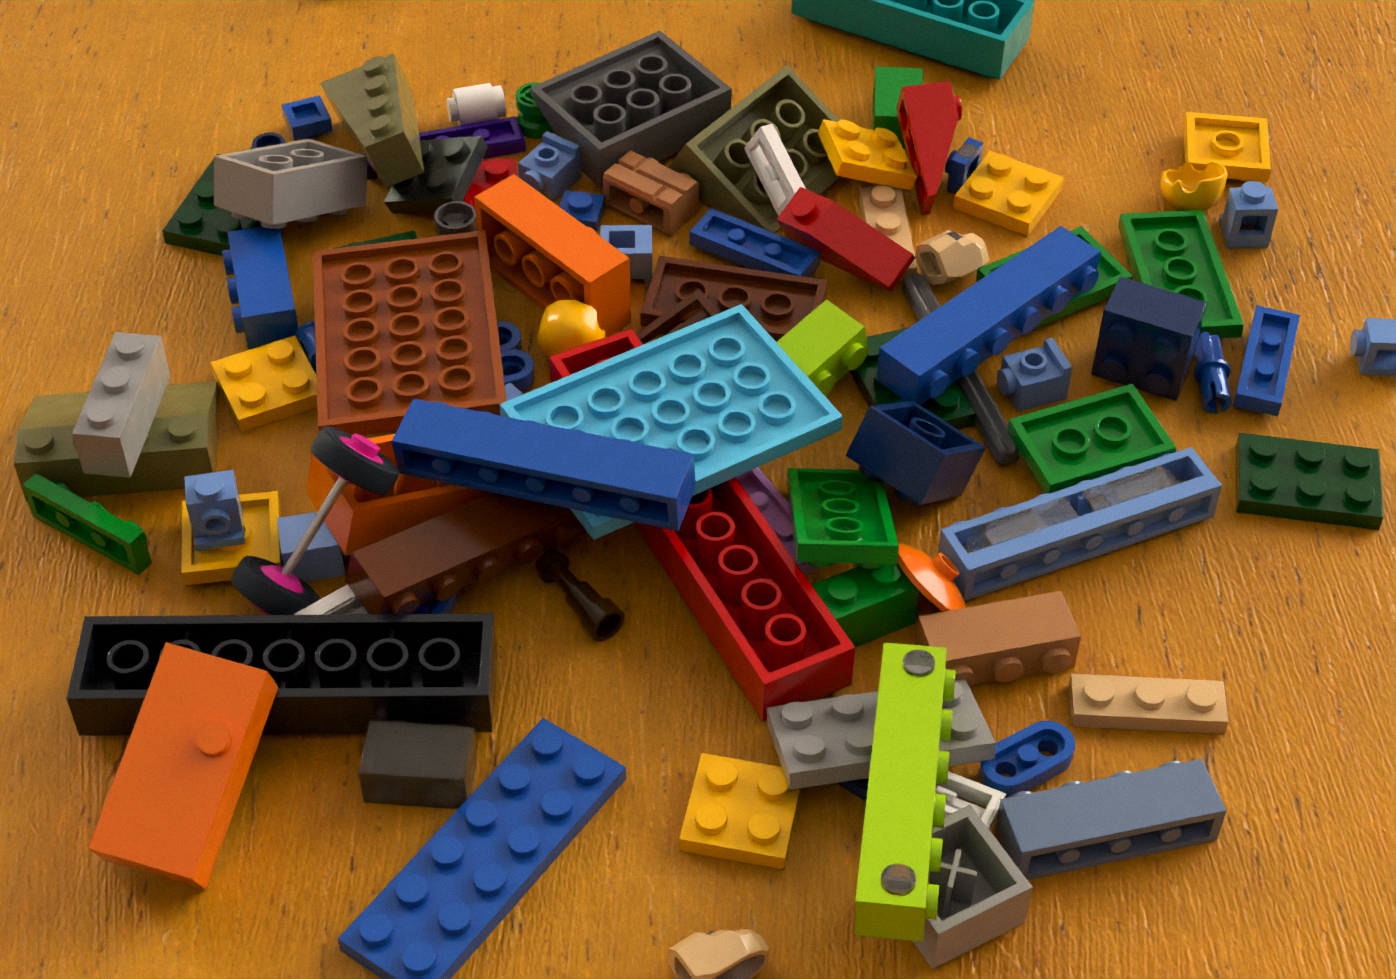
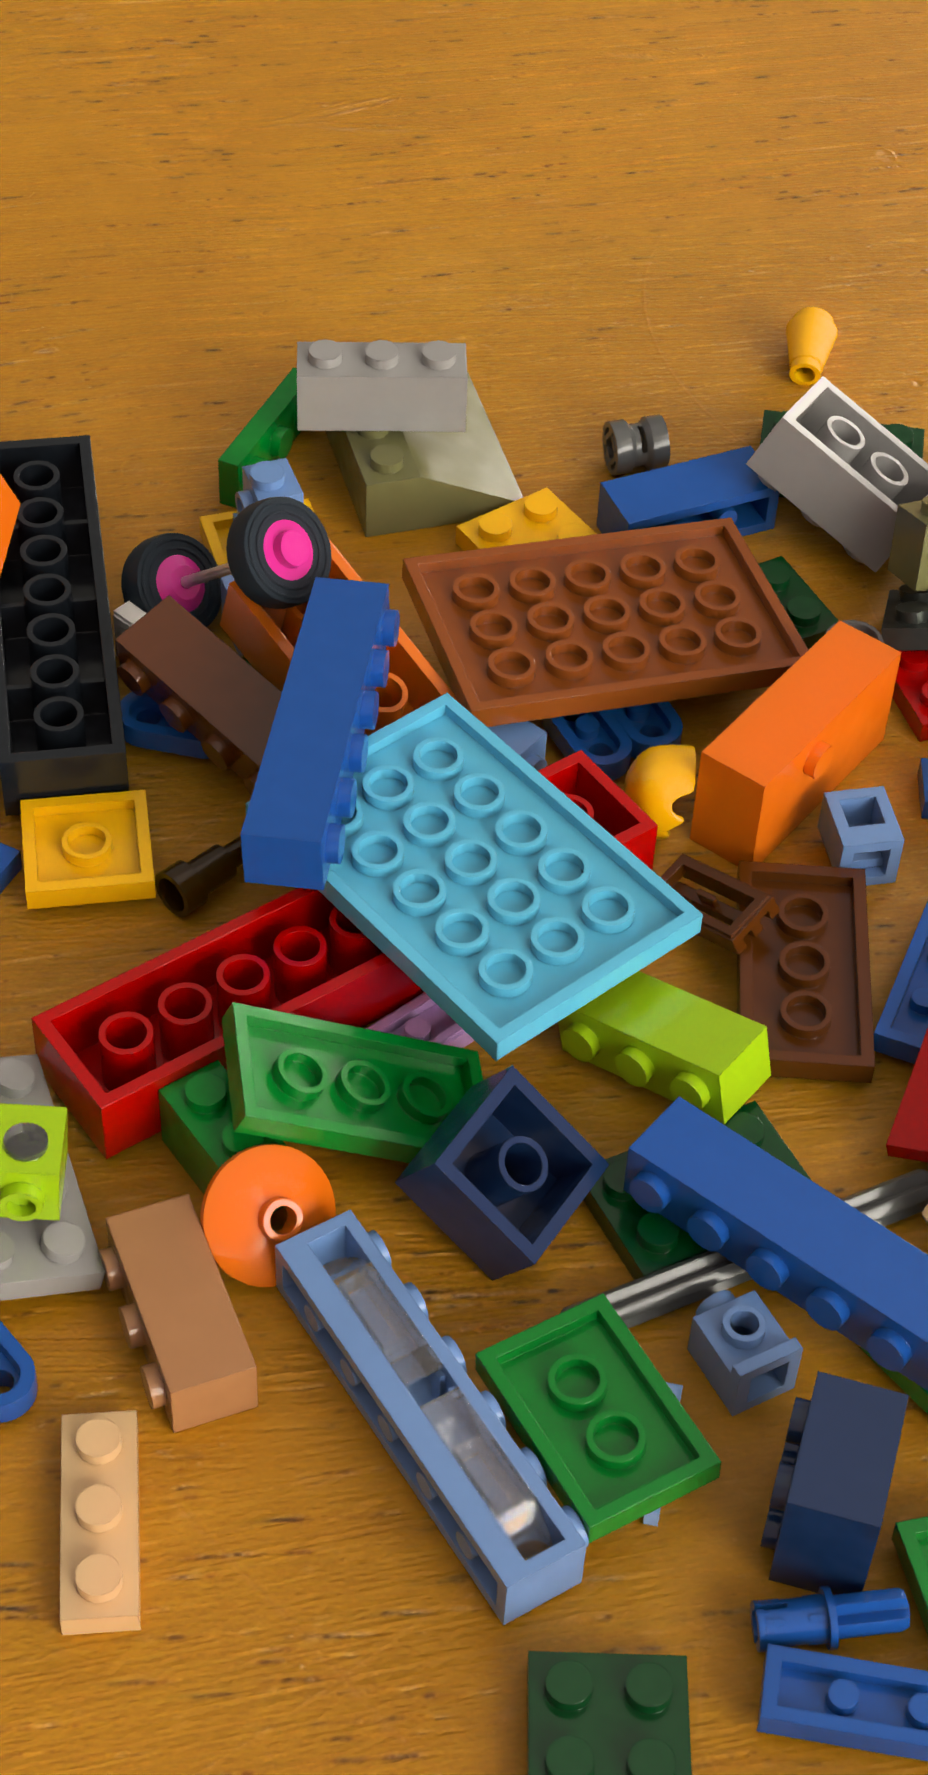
camera: 80 degrees right, 0 degrees up
(94, 194) = (809, 343): none -> yellow cone
(181, 303) = (635, 444): none -> dark grey wheel
(548, 675) = (87, 849): none -> yellow plate

